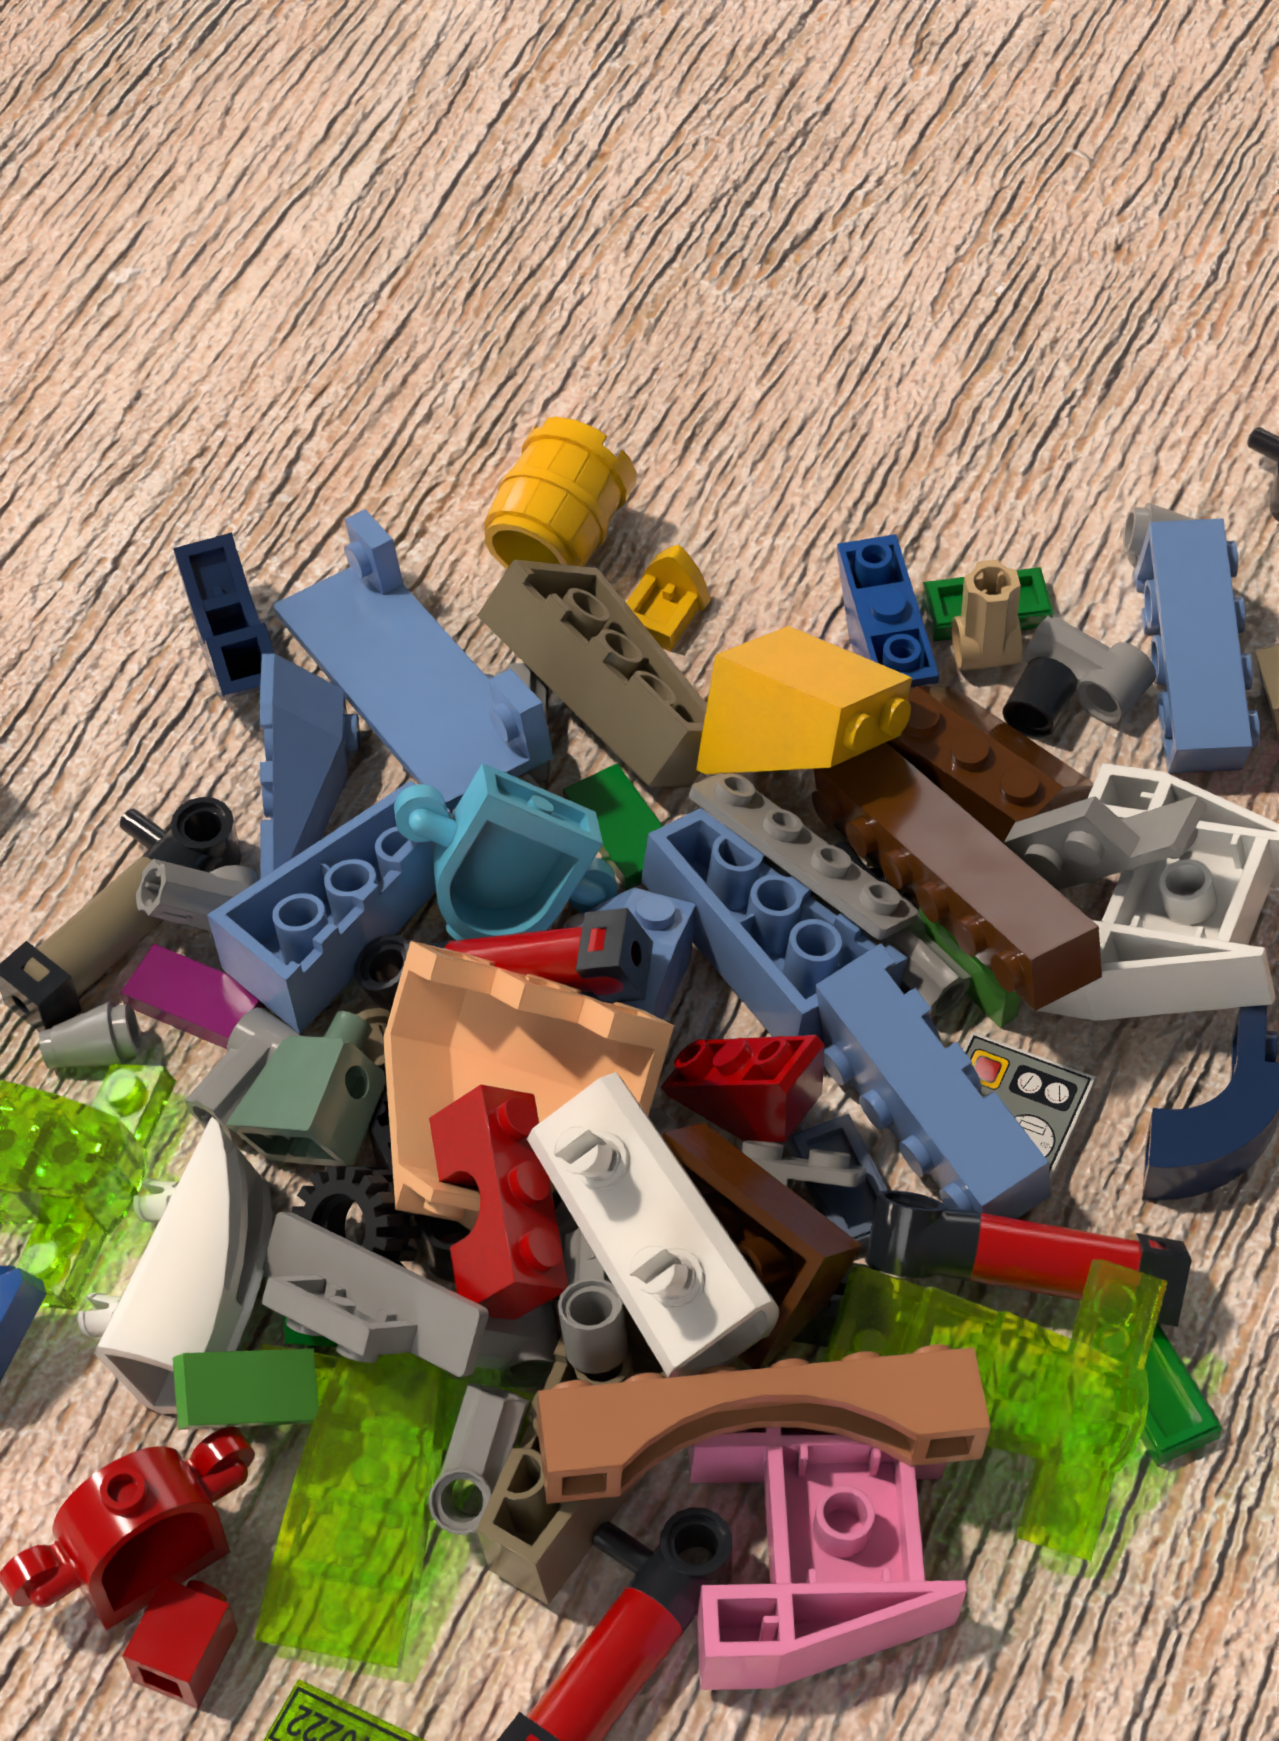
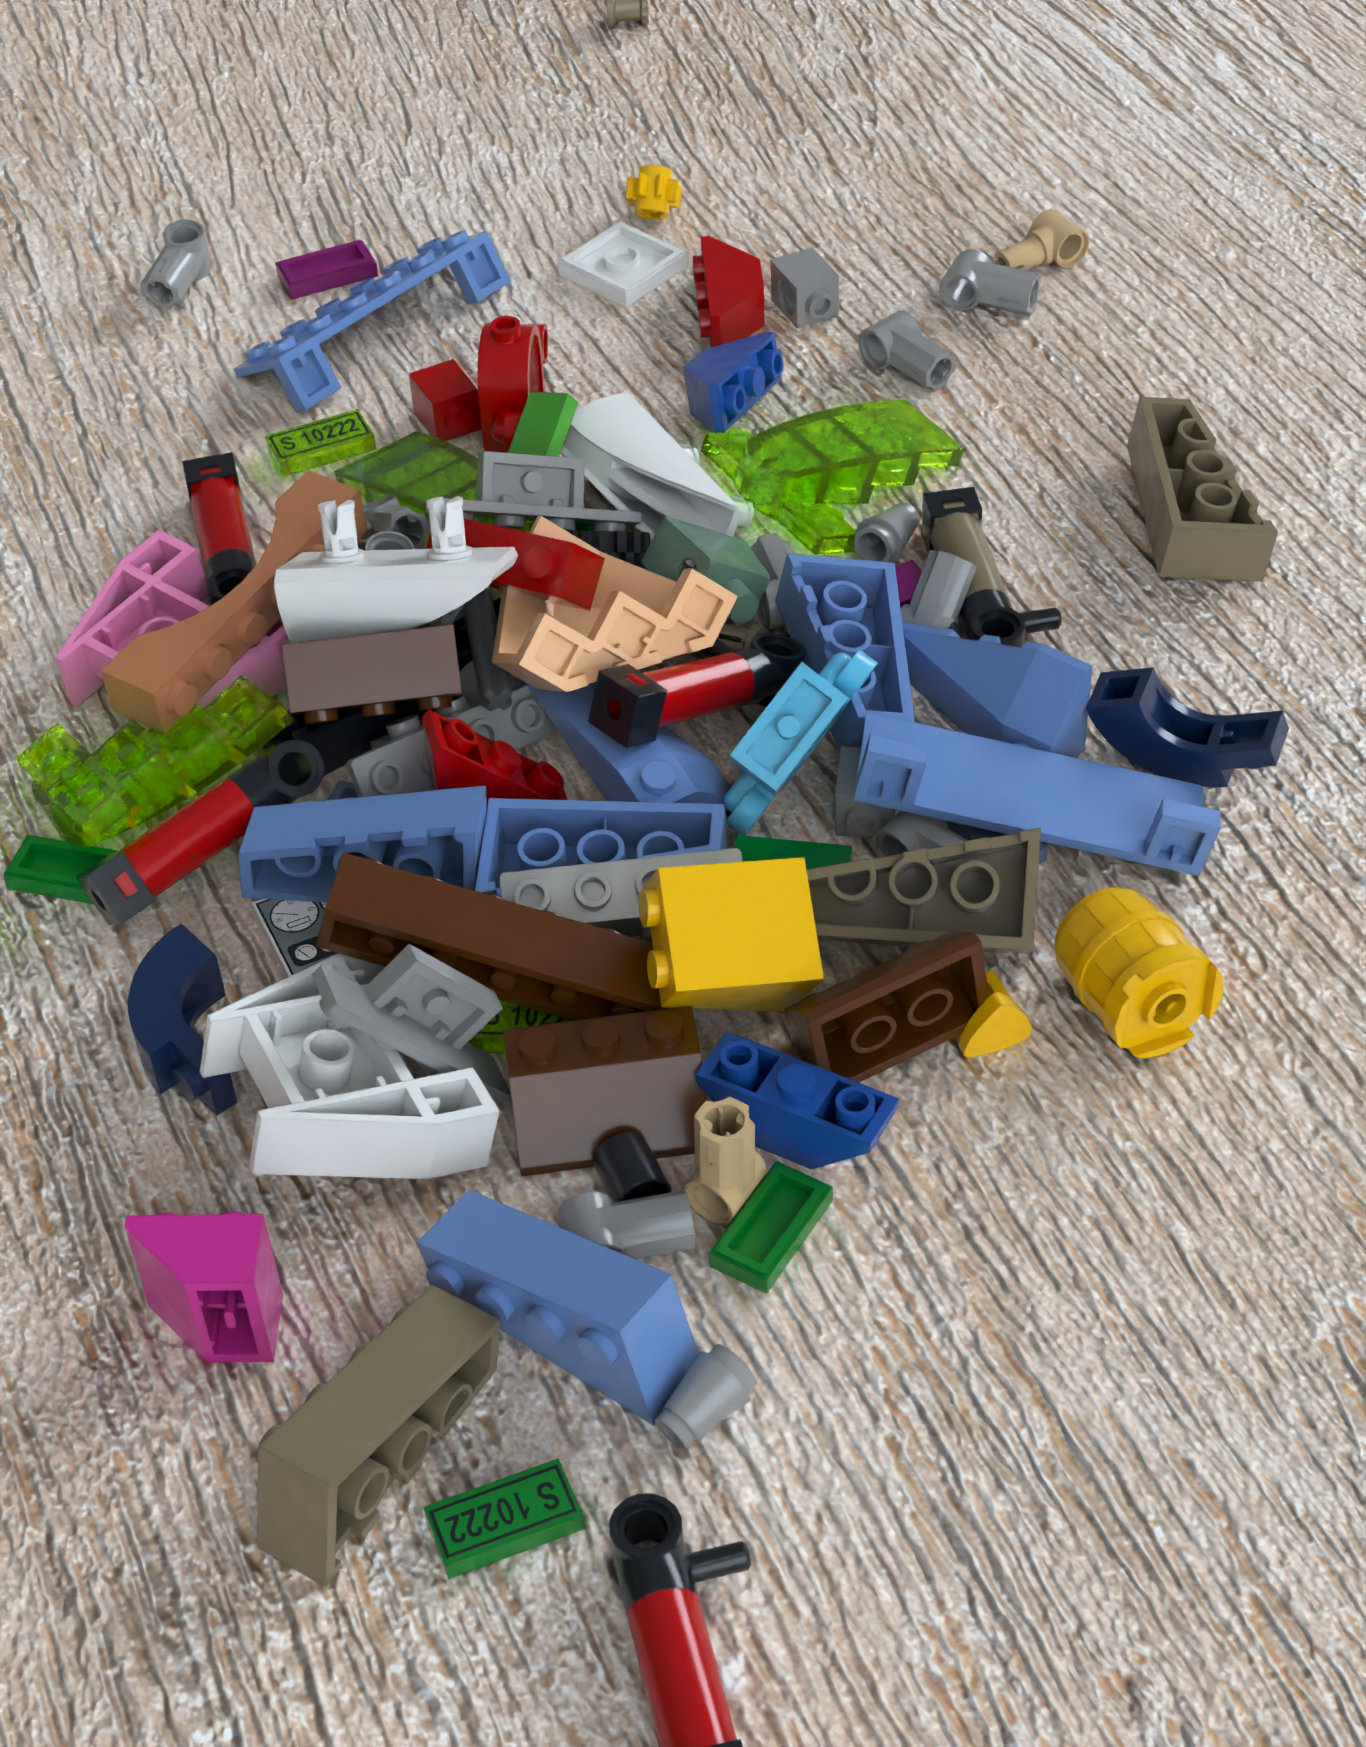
camera: 130 degrees right, 10 degrees down
(729, 591) = (892, 1008): none -> reddish brown slope

